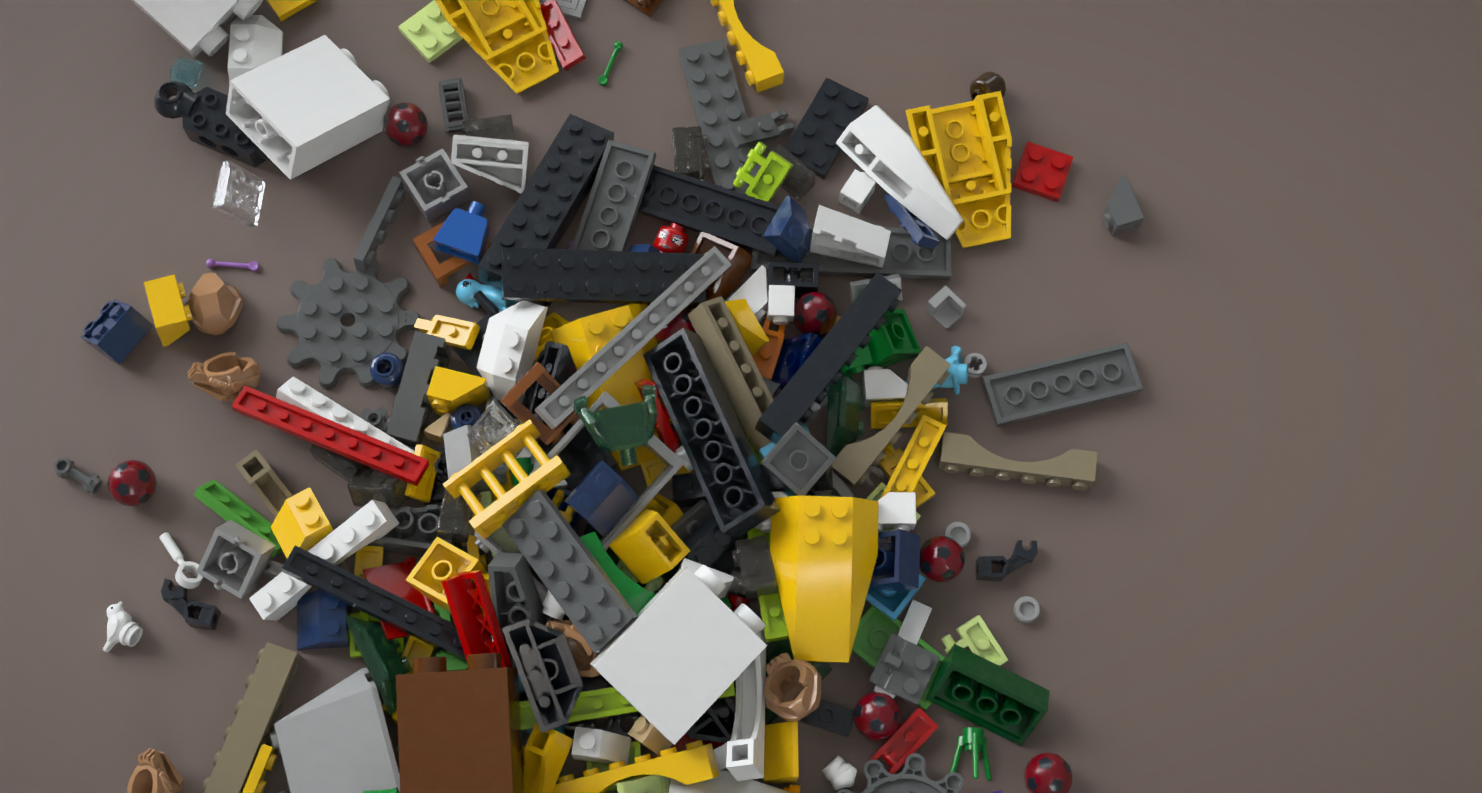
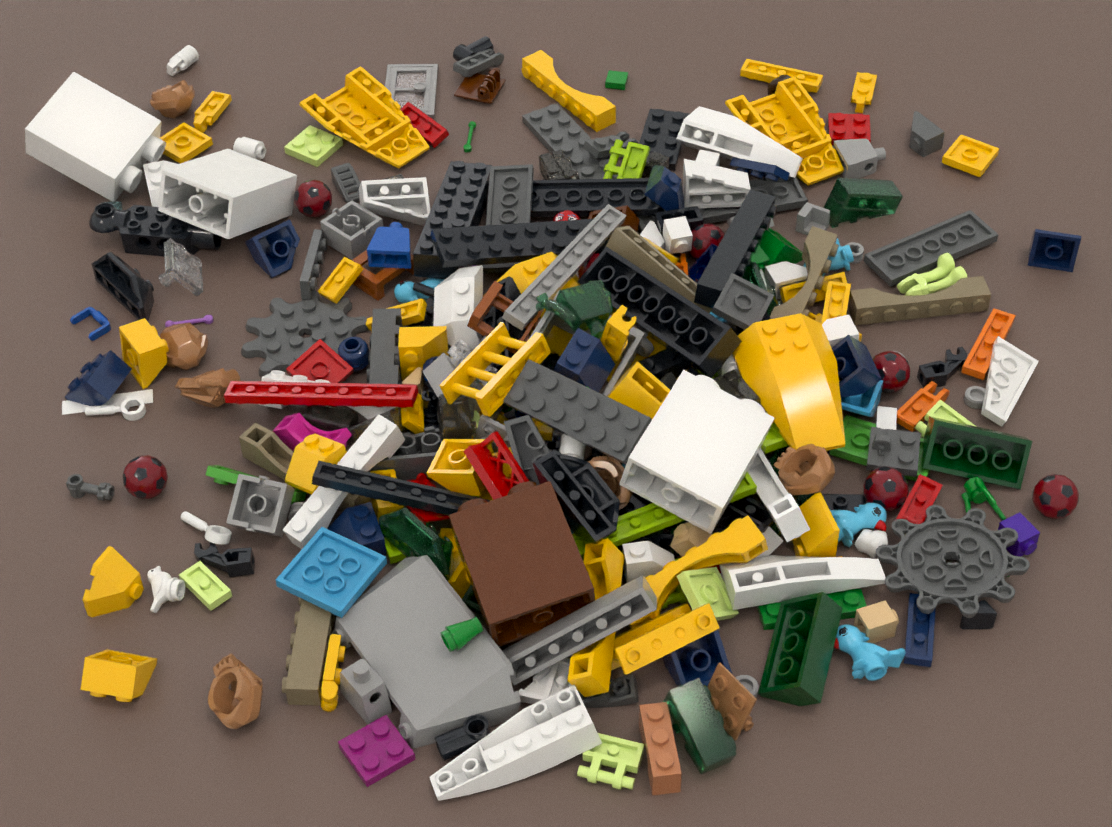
camera: 10 degrees left, 25 degrees down
(52, 723) = (117, 674): none -> yellow slope
(69, 615) = (114, 584): none -> yellow slope
(124, 369) = (126, 404): none -> white piece
(138, 356) = (71, 407): none -> white sticker
(140, 234) = (98, 316): none -> blue piece
(161, 636) = (205, 585): none -> yellowish green plate
(178, 202) = (125, 285): none -> black wedge
(280, 671) = (331, 571): none -> dark azure plate
(311, 474) = (295, 428): none -> dark pink arch
(346, 187) = (275, 248): none -> dark blue slope
(347, 381) = (321, 363): none -> red plate
(358, 21) = (250, 147): none -> white brick
(401, 260) = (340, 280): none -> yellow plate
(643, 471) = (616, 333): none -> yellow hinge
(805, 16) = (616, 80): none -> green tile
(822, 748) = (866, 517): none -> medium azure animal
(959, 609) = (918, 406): none -> orange hinge
(991, 59) = (767, 72): none -> yellow plate
(1011, 292) = (861, 198): none -> clear green wedge
(1033, 224) = (858, 157): none -> light grey torso
(1062, 422) = (944, 274): none -> yellowish green piece
(1067, 598) = (1006, 380): none -> white wing
(1068, 542) = (979, 358): none -> orange plate
(1083, 113) = (863, 90): none -> yellow hinge
(1163, 254) = (970, 155): none -> yellow plate
(1194, 429) = (1053, 250): none -> dark blue slope

